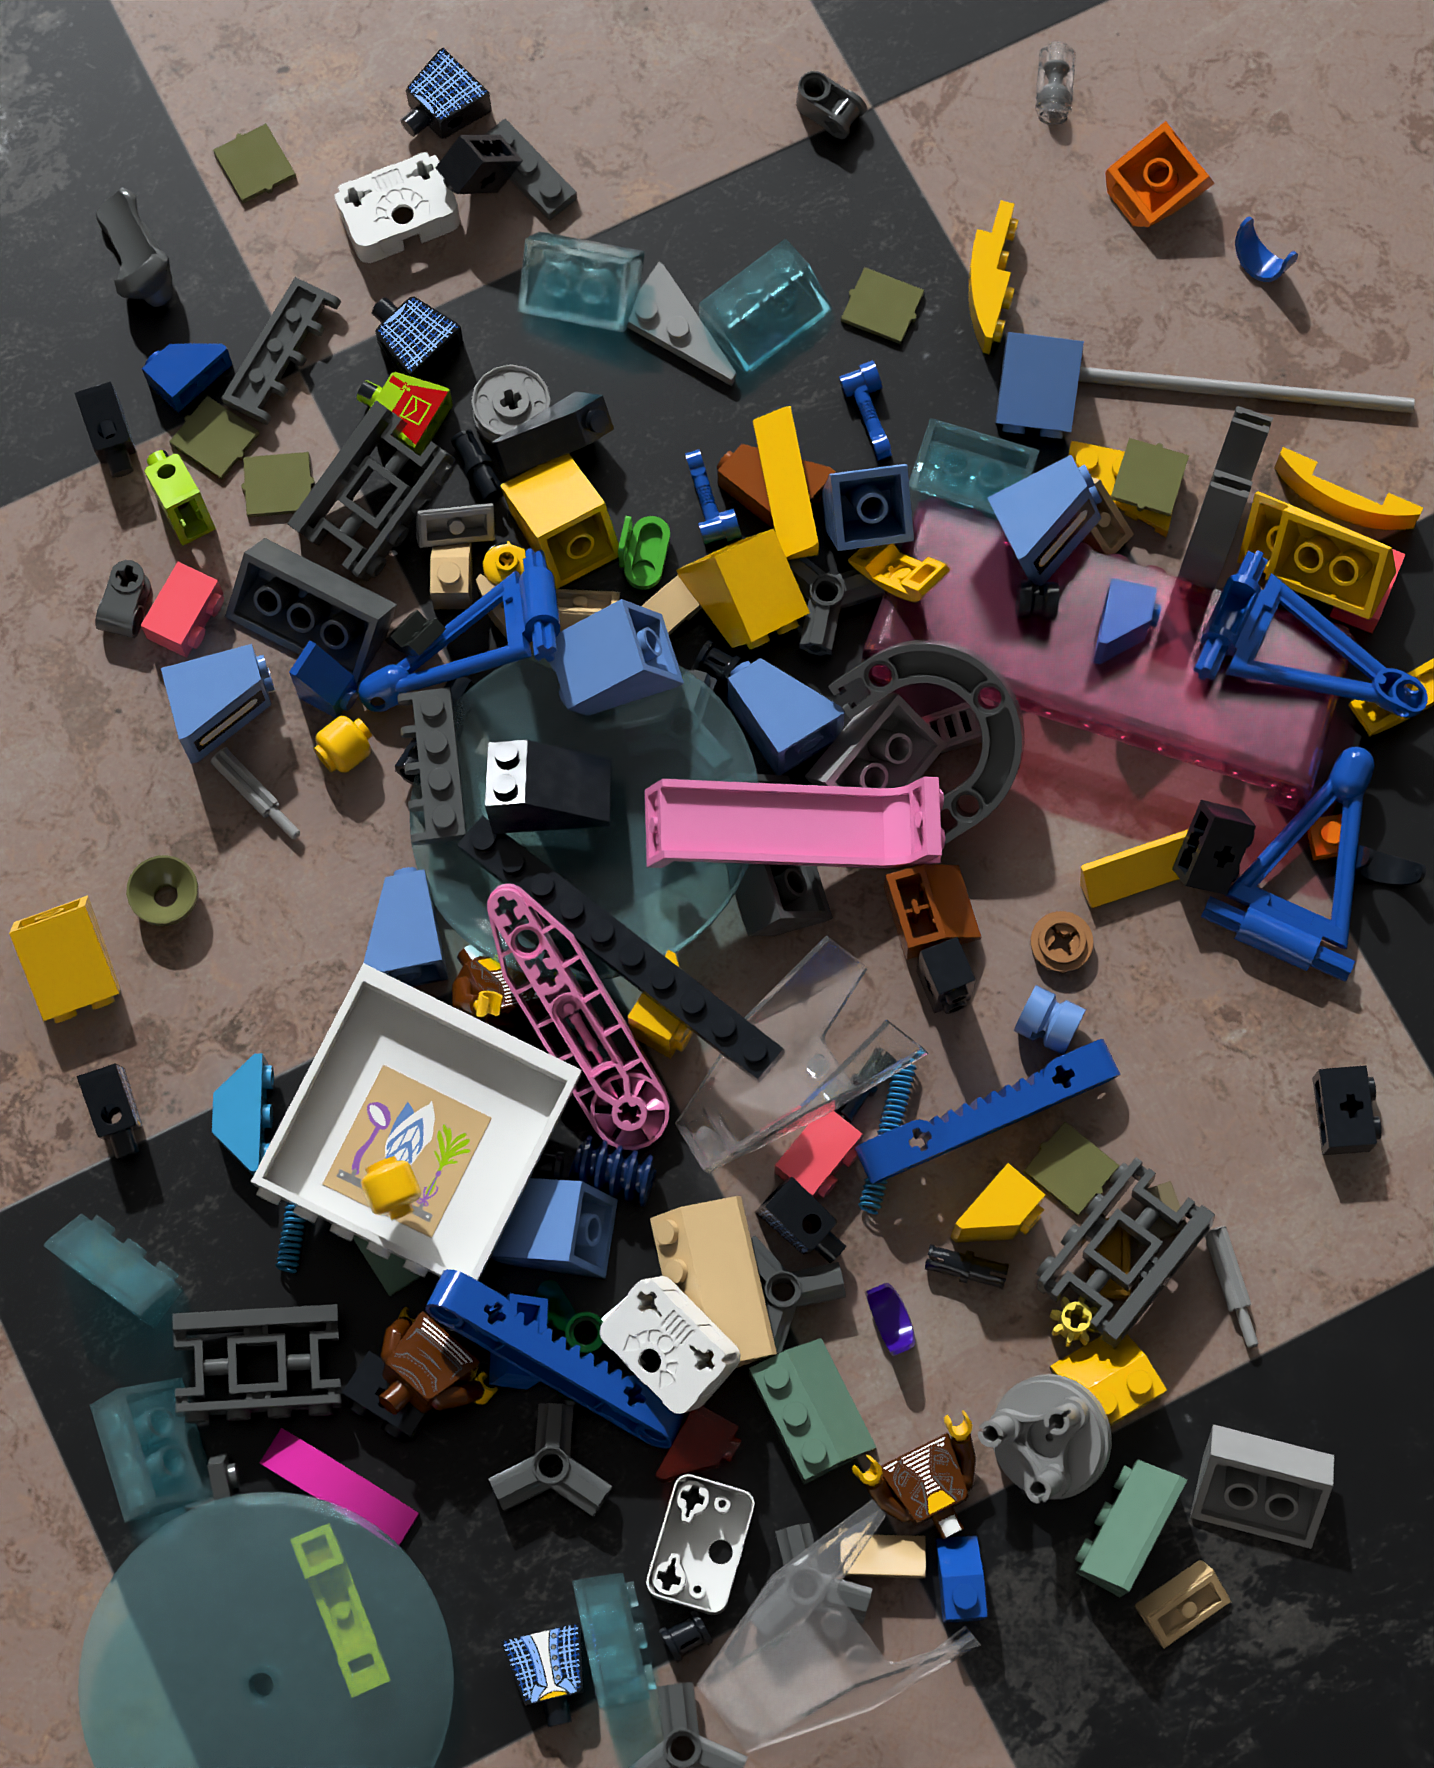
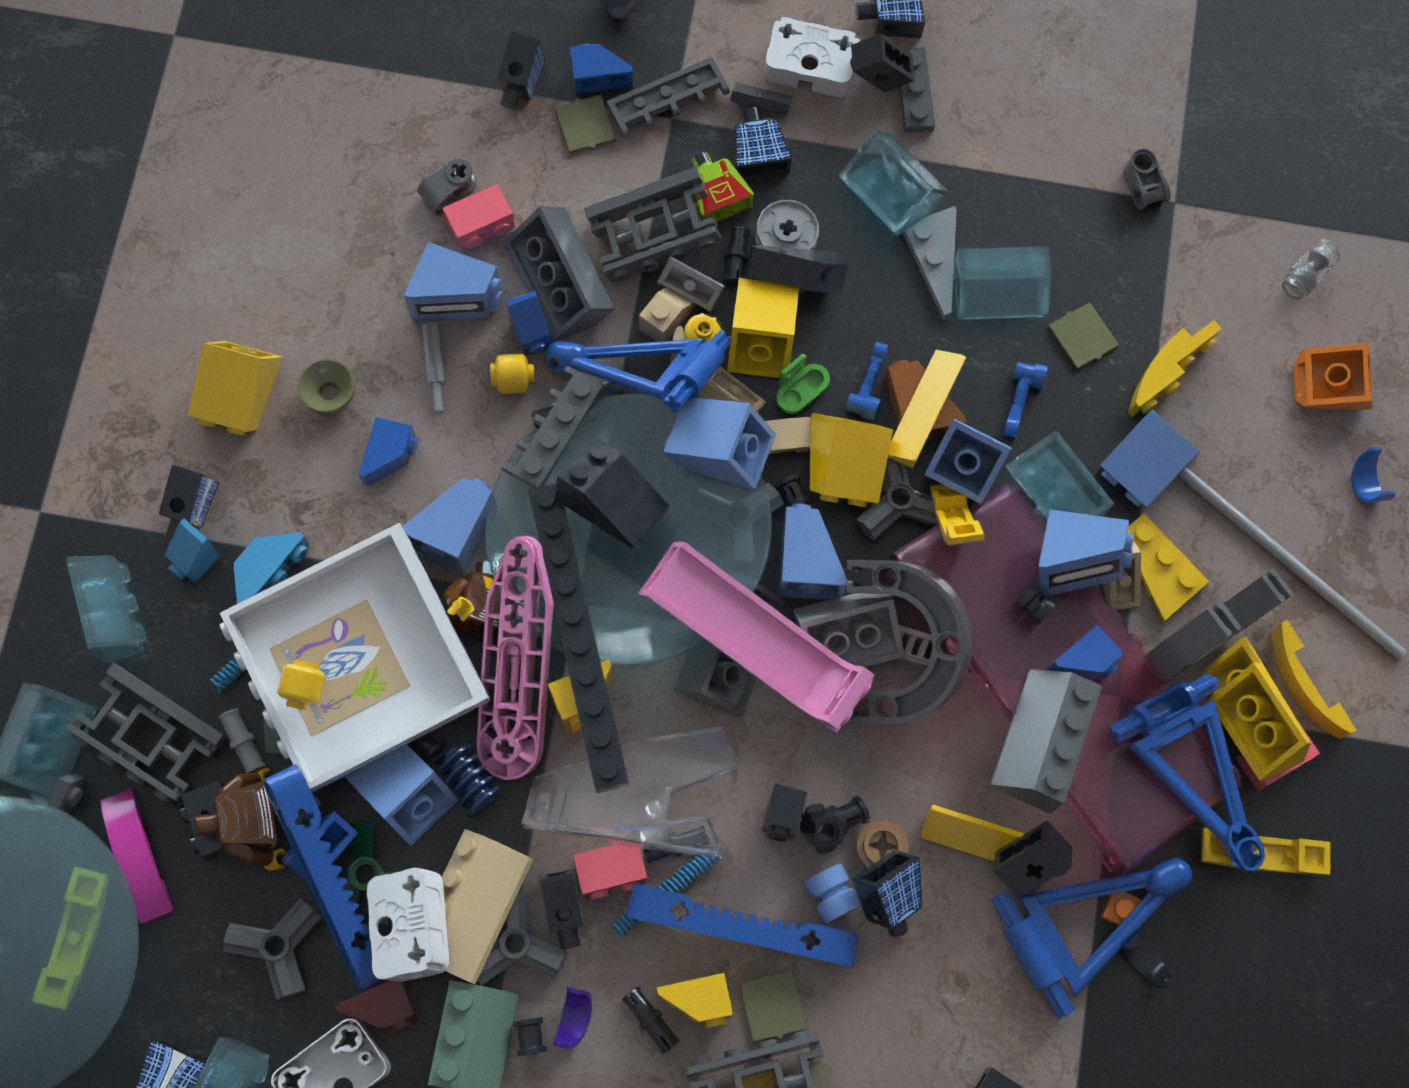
camera: 30 degrees right, 0 degrees up
(158, 1154) = (190, 553): none -> dark azure slope
(174, 487) = (531, 133): lime torso -> none
(275, 908) = (387, 450): none -> blue slope
(276, 483) = (601, 178): olive piece -> none
(357, 1300) = (241, 741): none -> light grey pin
(378, 285) = (761, 98): none -> black tile
(415, 634) = (610, 335): pearl dark grey slope -> none
(864, 1367) = (530, 1036): none -> black bush
(930, 907) = (811, 759): dark orange slope -> none
(997, 958) = (834, 822): none -> black connector
(1103, 975) = (890, 891): none -> black torso
(1144, 720) = (1045, 738): none -> dark grey slope
(1149, 477) = (1179, 575): olive piece -> none

